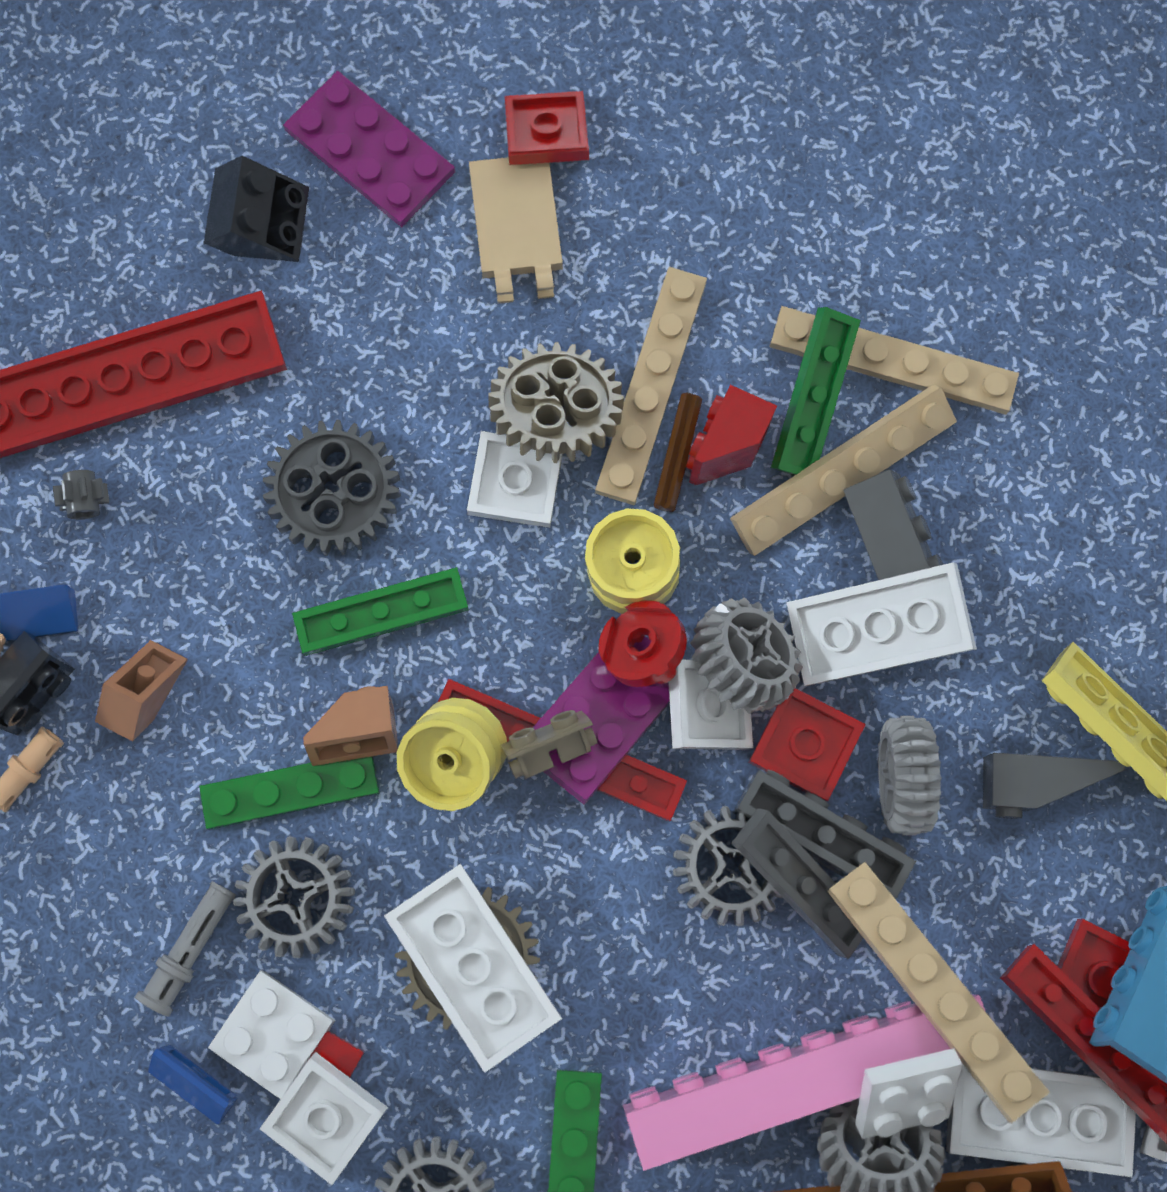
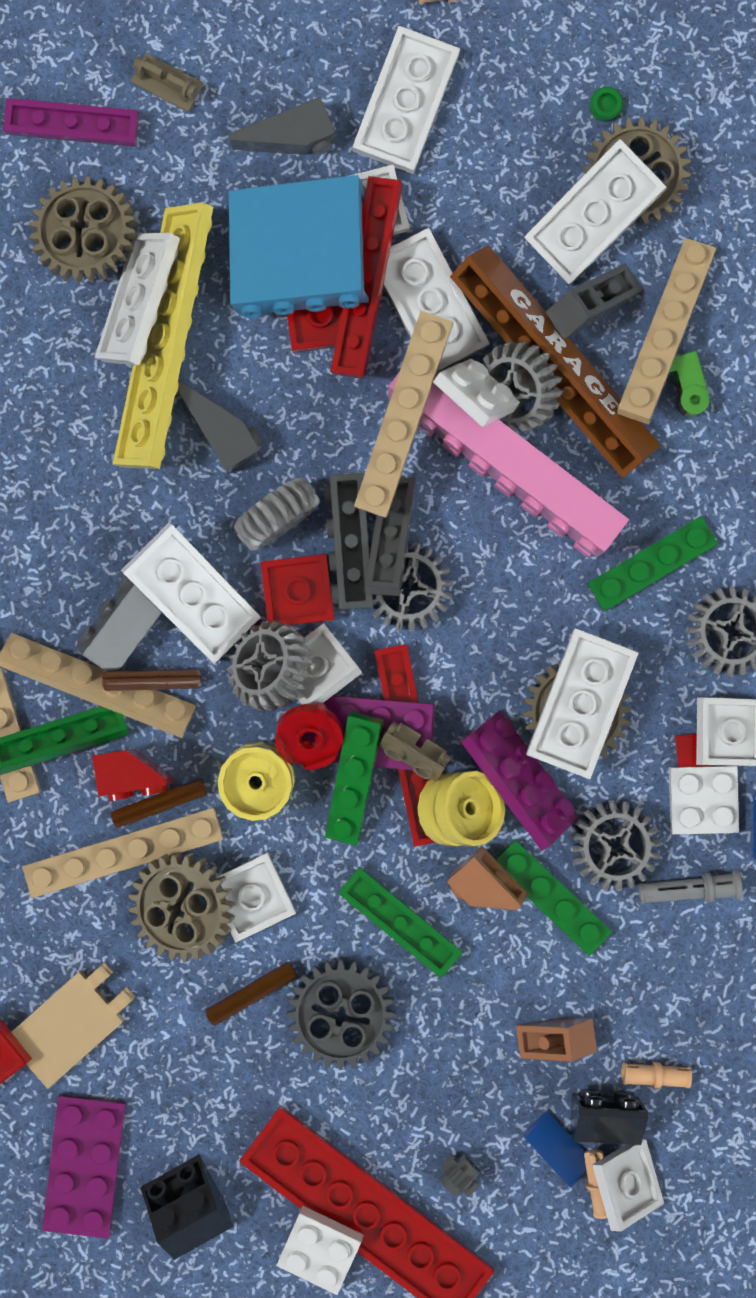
camera: 125 degrees left, 10 degrees up
(116, 309) = (320, 1250): none -> white plate
(418, 415) = (251, 993): none -> reddish brown axle
(436, 838) = (520, 780): none -> magenta plate
(566, 664) = (354, 778): none -> green plate
(813, 526) = (151, 679): none -> reddish brown axle

